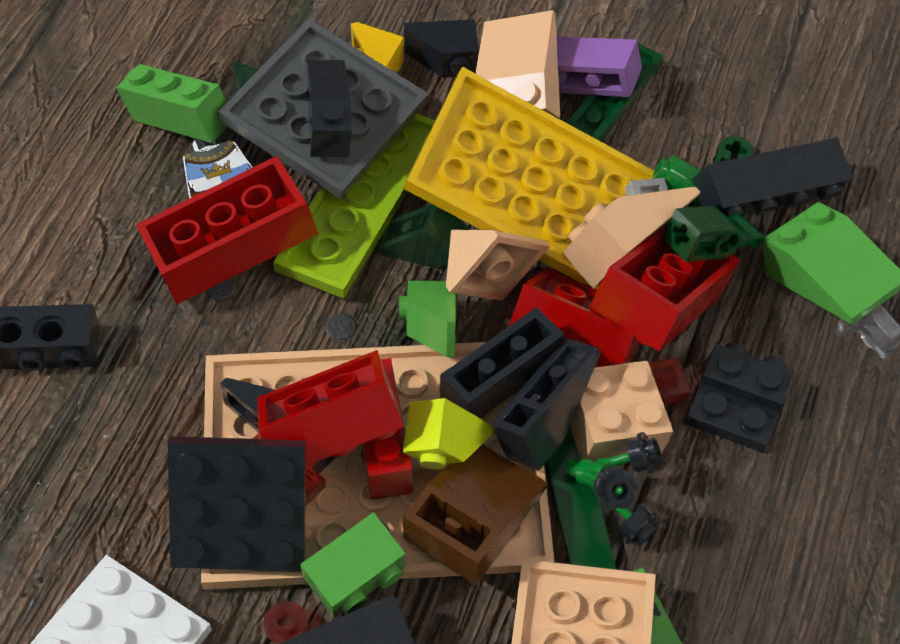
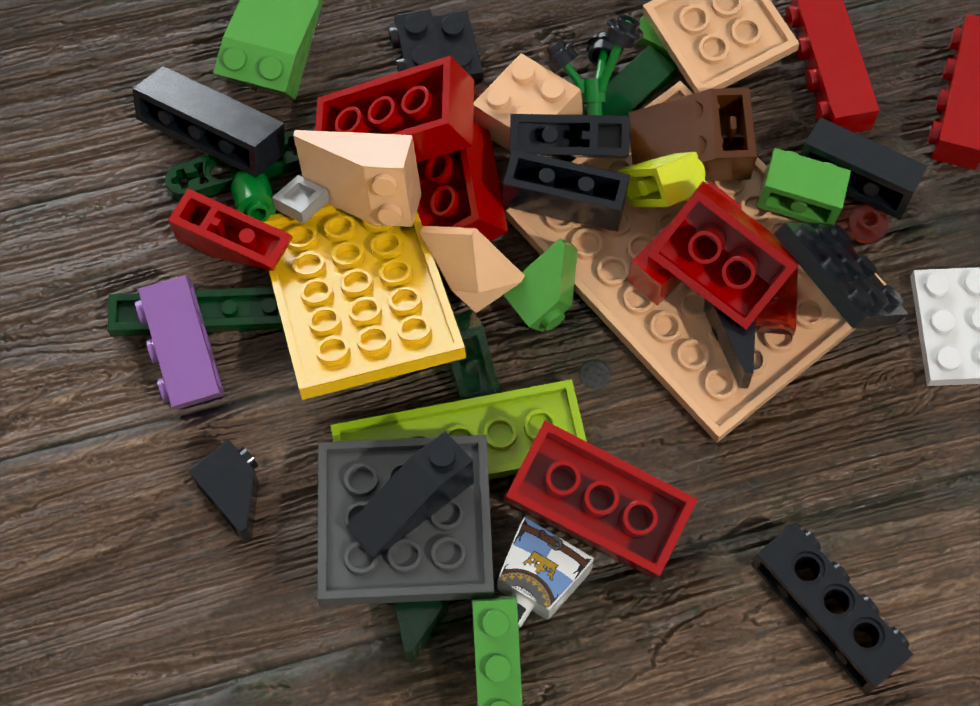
camera: 125 degrees left, 10 degrees up
(379, 45) = (287, 542): yellow slope -> none
(523, 58) = (231, 381): light nougat slope -> none
(668, 131) = (227, 232): none -> red slope
(708, 233) = (321, 110): dark green piece -> none

